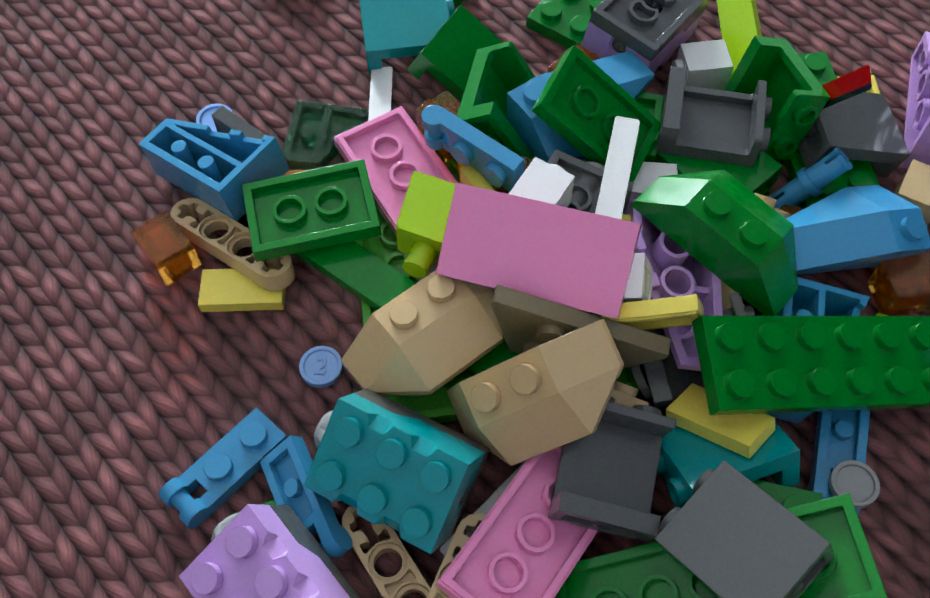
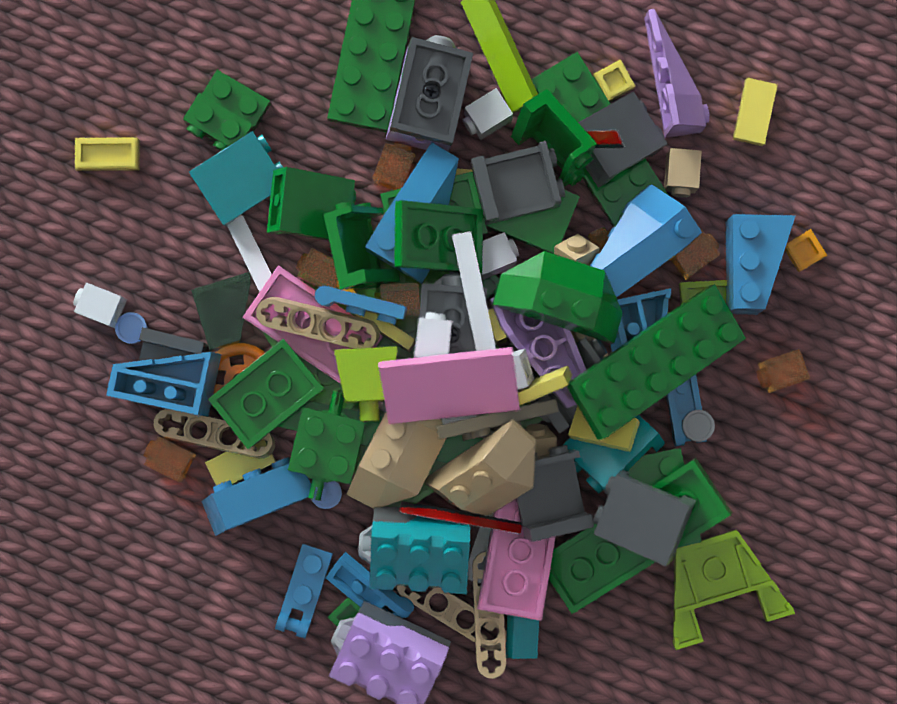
camera: 30 degrees left, 25 degrees up
(196, 80) = (99, 304): none -> white brick
(235, 321) = (255, 496): none -> dark azure wedge
(345, 291) = (326, 445): none -> green plate
(415, 154) = (317, 326): none -> tan beam
(475, 445) = (461, 517): none -> red sticker
(812, 180) = (603, 201): dark azure pin -> none

